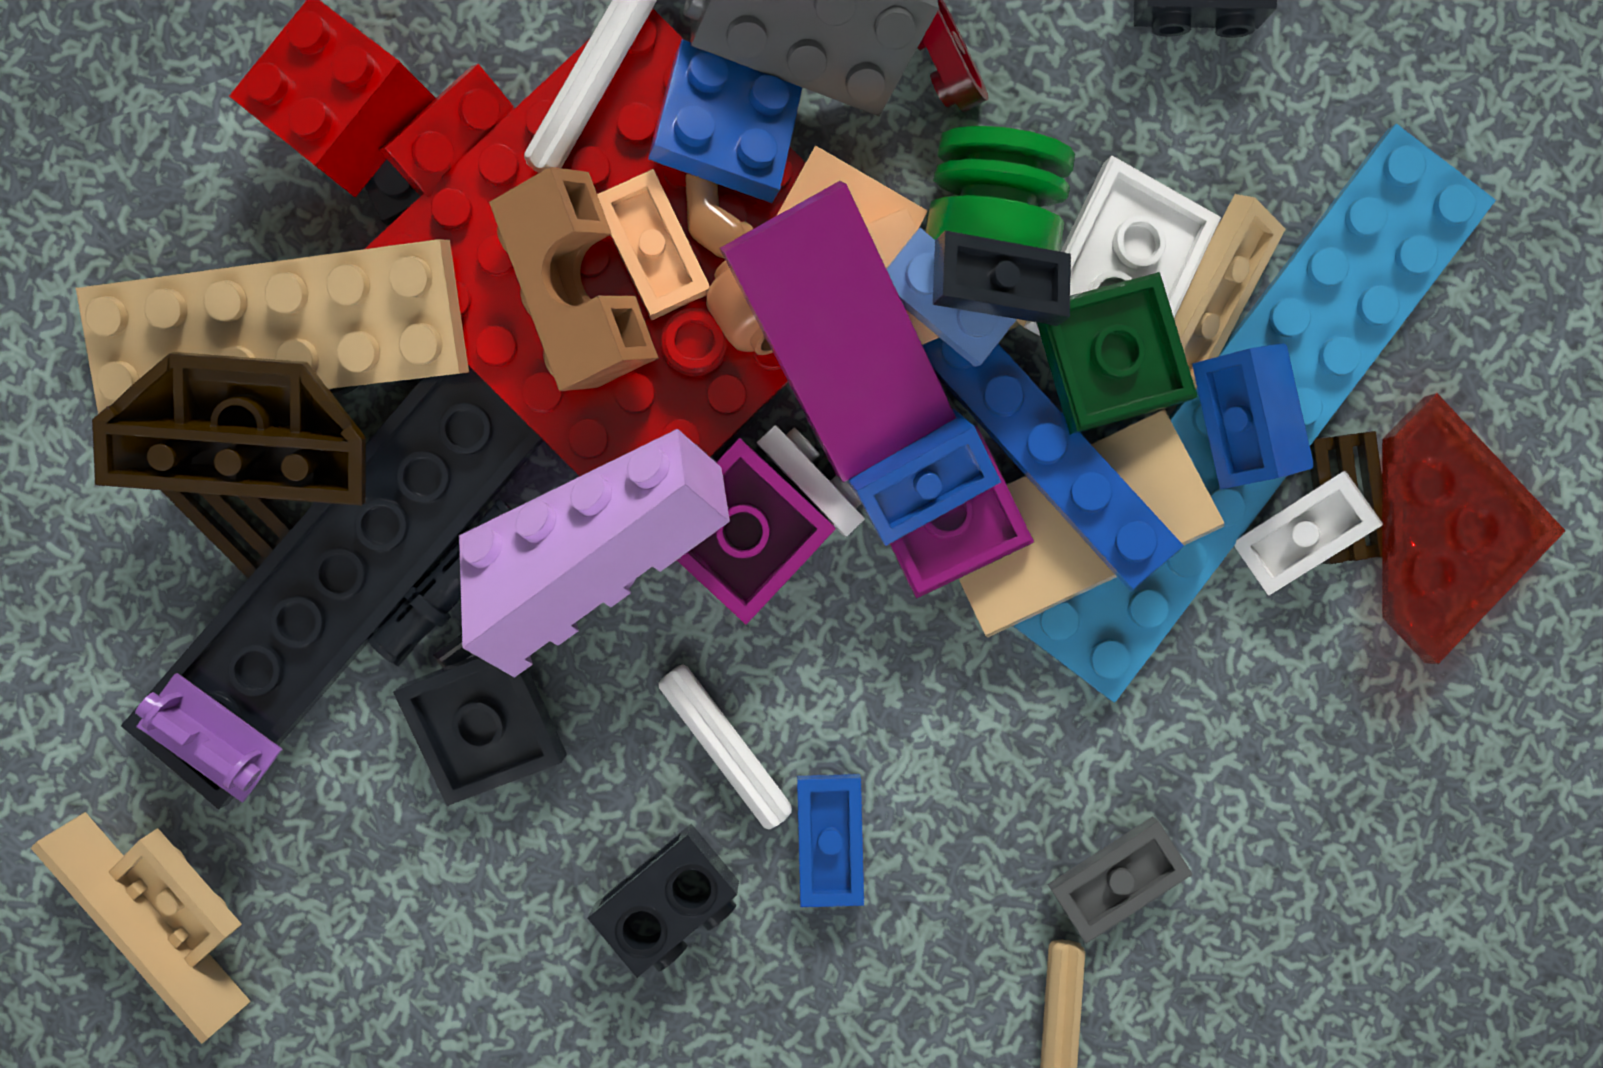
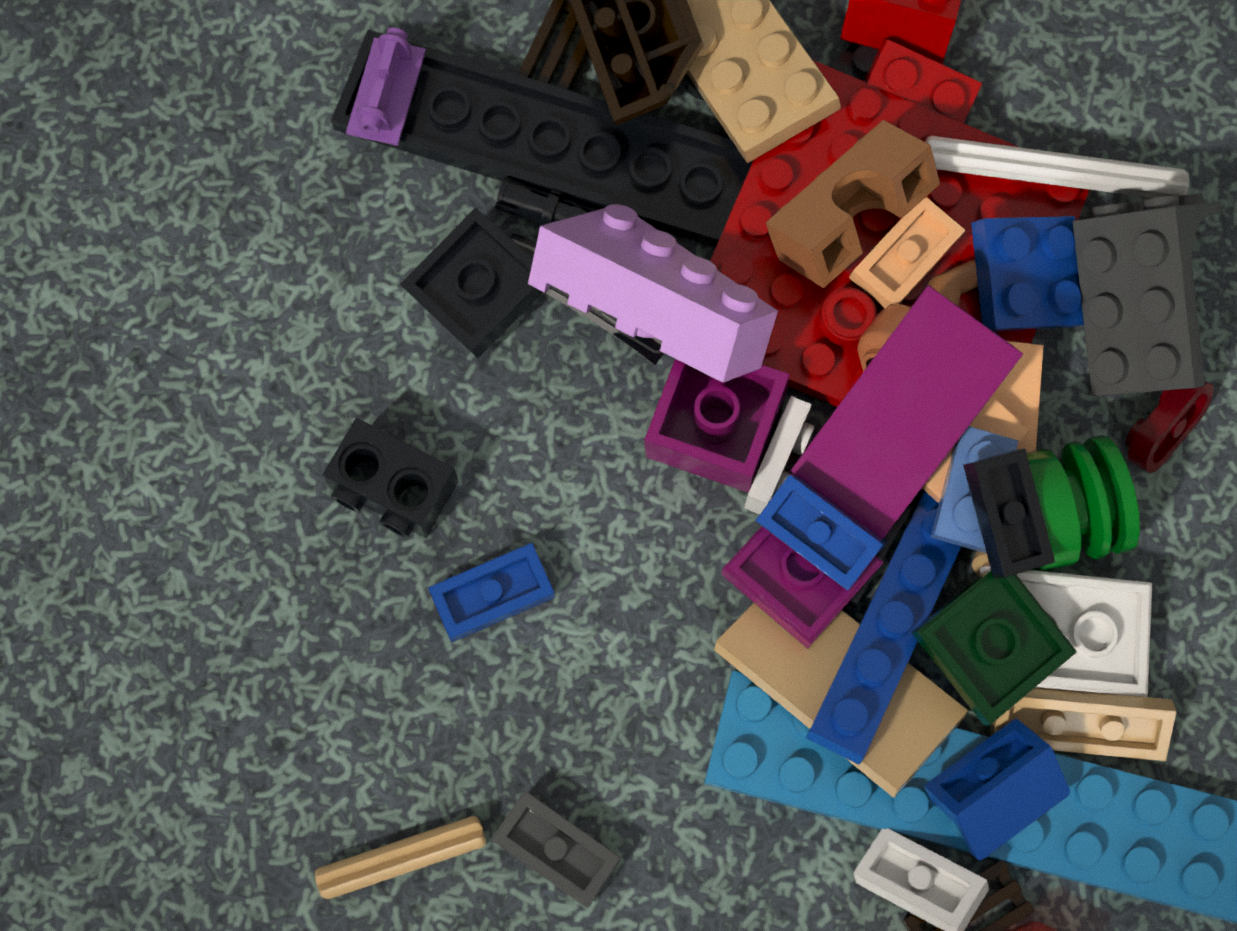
camera: 65 degrees right, 15 degrees down
(154, 914) = (230, 108): tan bracket -> none
(725, 747) = (533, 480): white axle -> none

